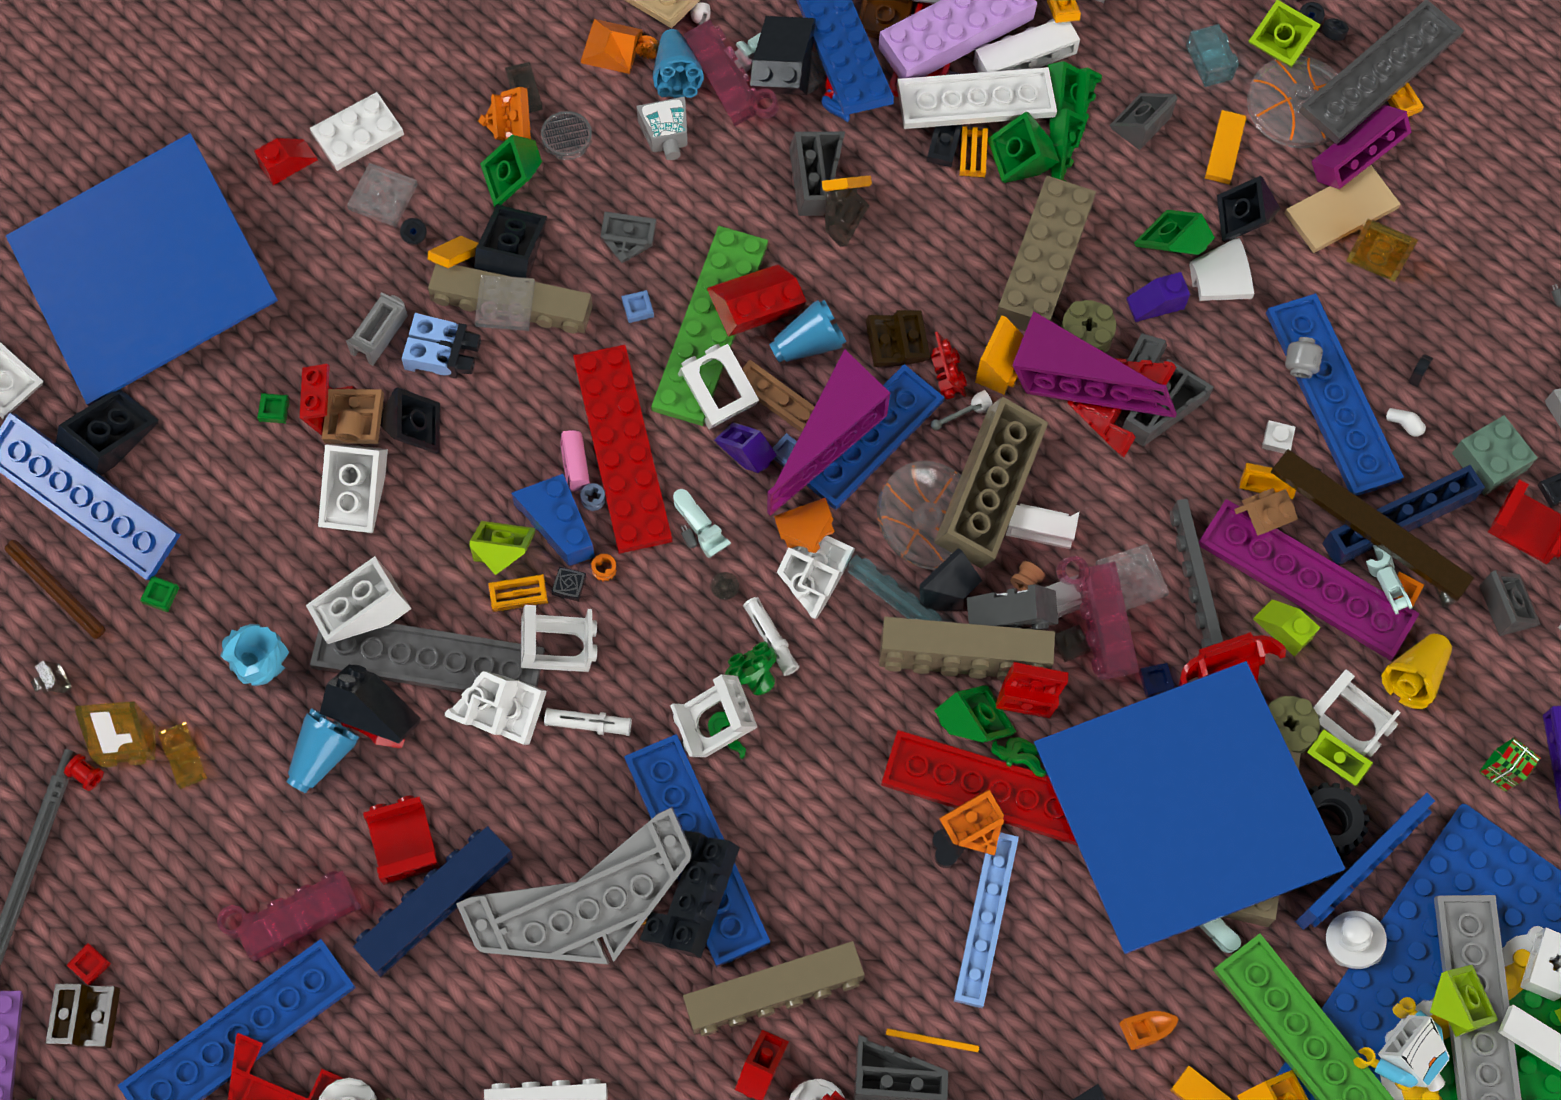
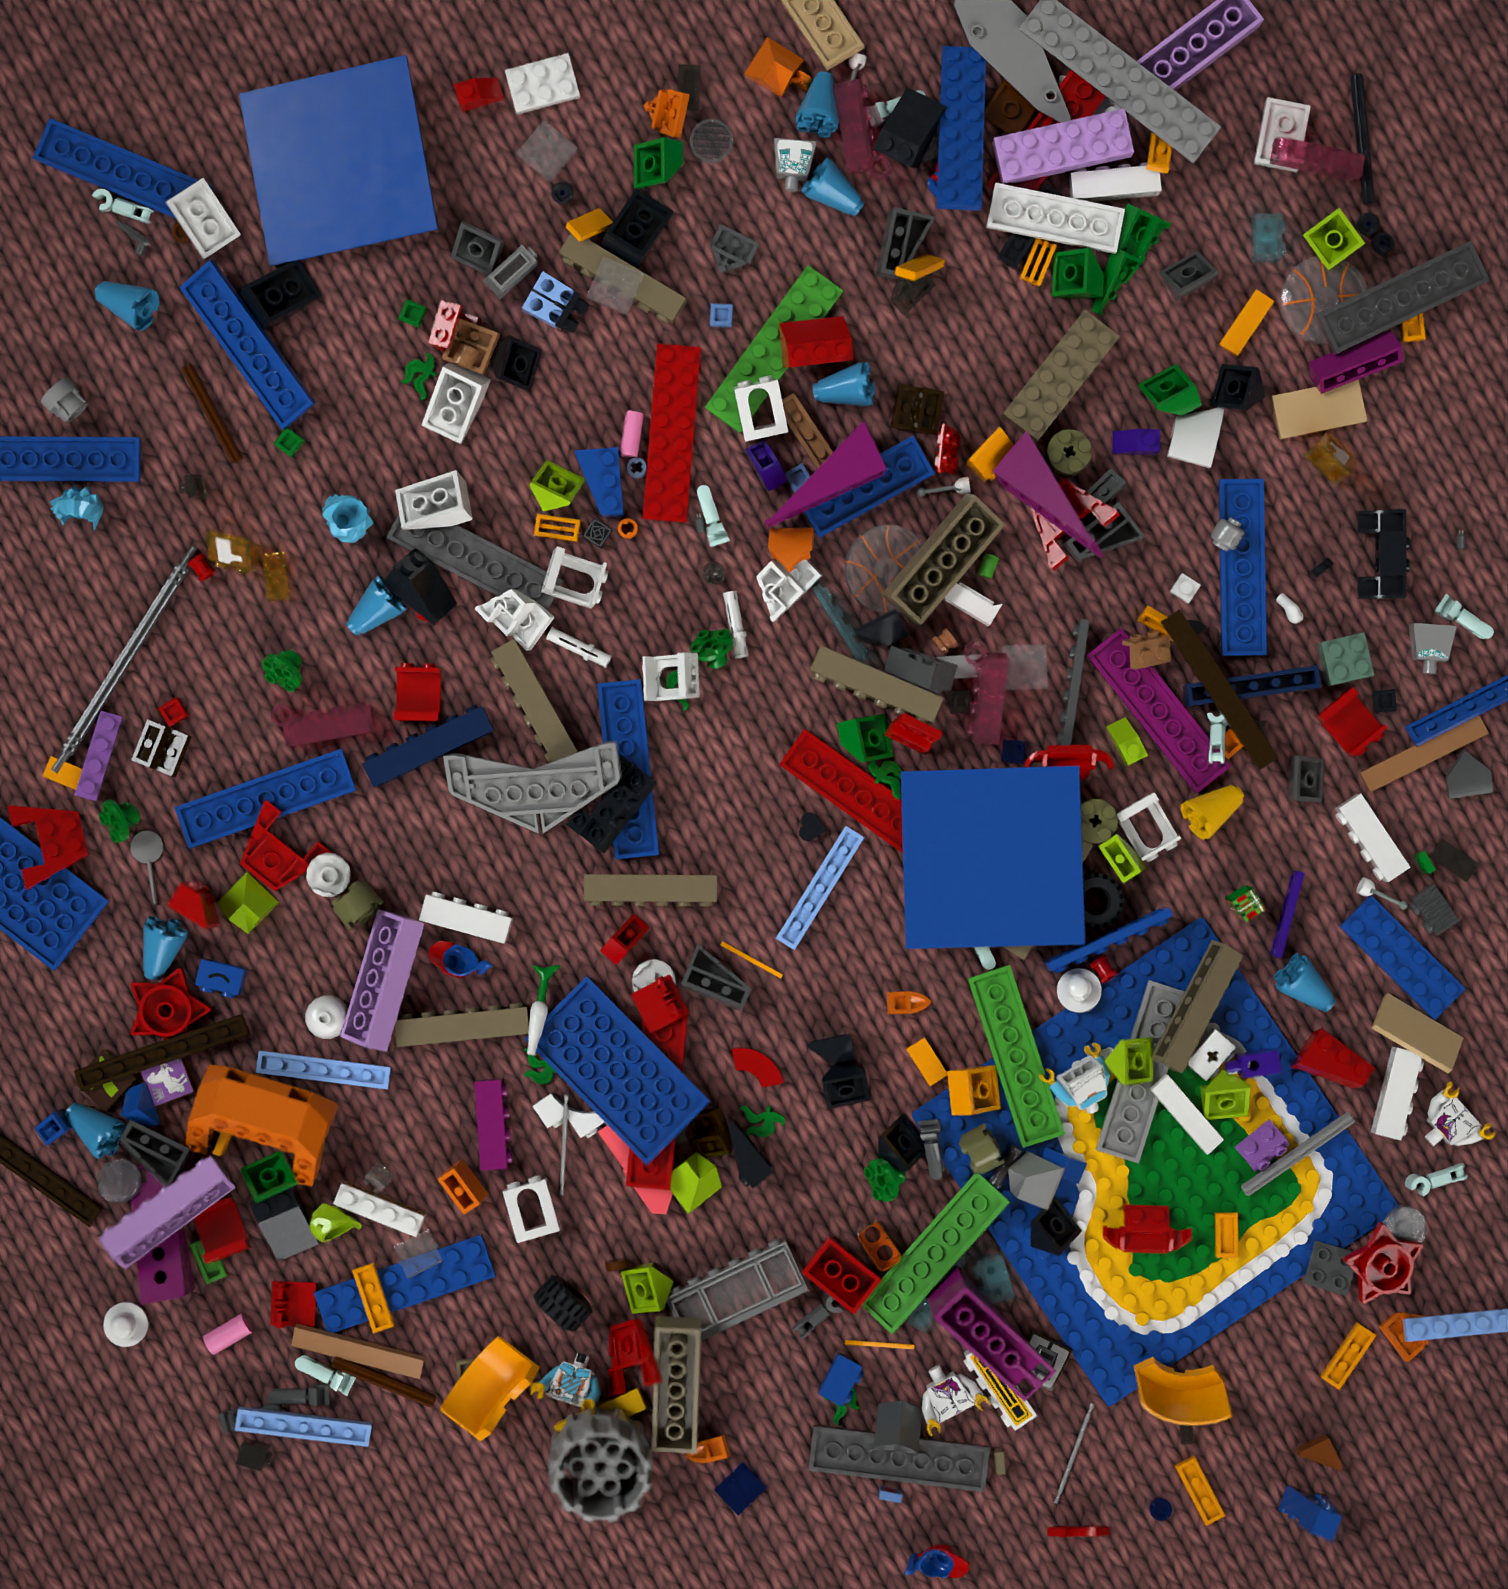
camera: 25 degrees right, 20 degrees up
(219, 863) = (283, 669): none -> green plate
(306, 465) = (418, 366): none -> green piece
(330, 313) = (477, 248): none -> dark grey slope
(549, 800) = (533, 700): none -> dark tan brick
(720, 139) = (833, 189): none -> dark azure cone
(975, 823) = (835, 818): orange slope -> none
(1044, 480) = (988, 566): none -> bright green piece
(1374, 903) = (1103, 969): none -> red bush
(1490, 327) = (1390, 554): none -> black bracket
(1510, 907) = (1197, 1006): none -> dark tan brick

